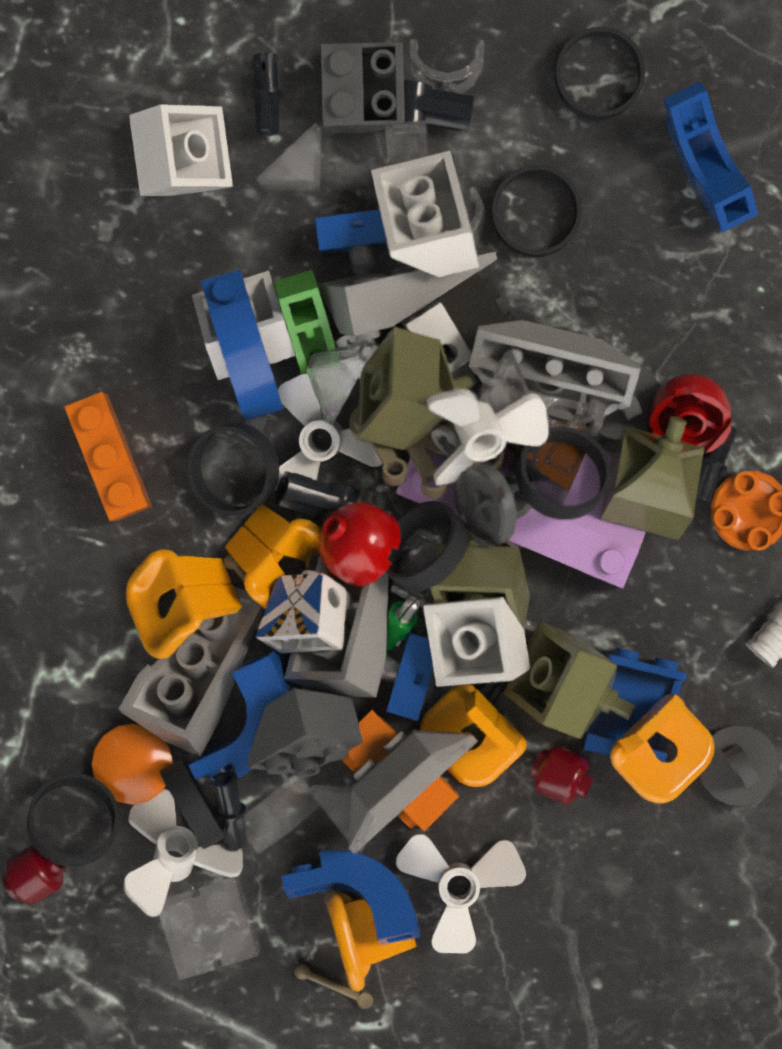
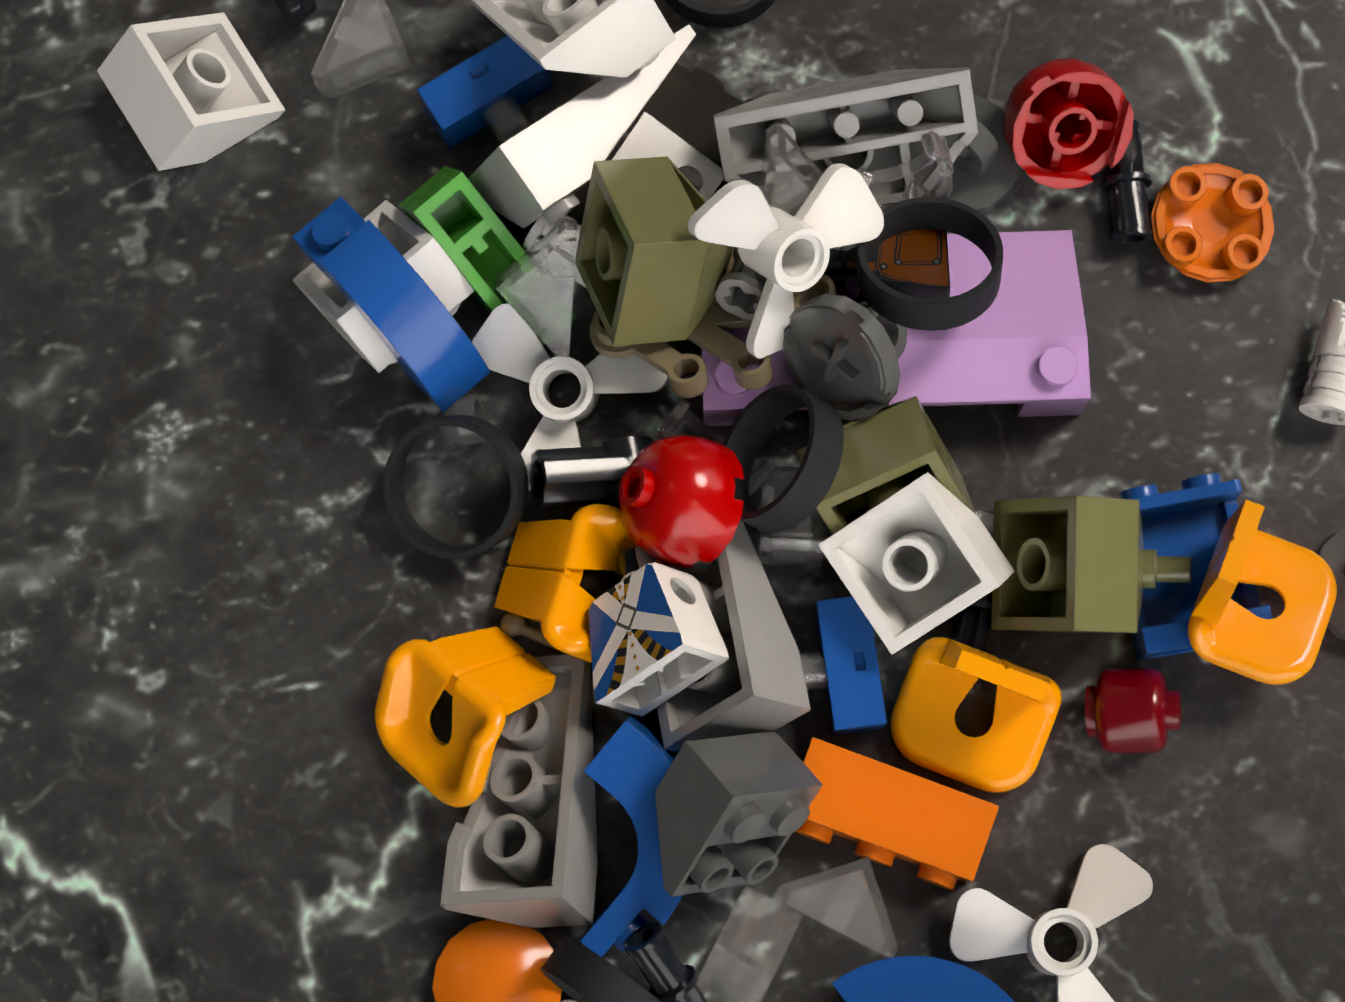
camera: 15 degrees left, 10 degrees down
(108, 456) = (268, 550): orange brick -> none
(400, 621) = (796, 589): green piece -> none
(400, 777) = (901, 813): light grey wedge -> none
(653, 481) = (1063, 229): olive piece -> none

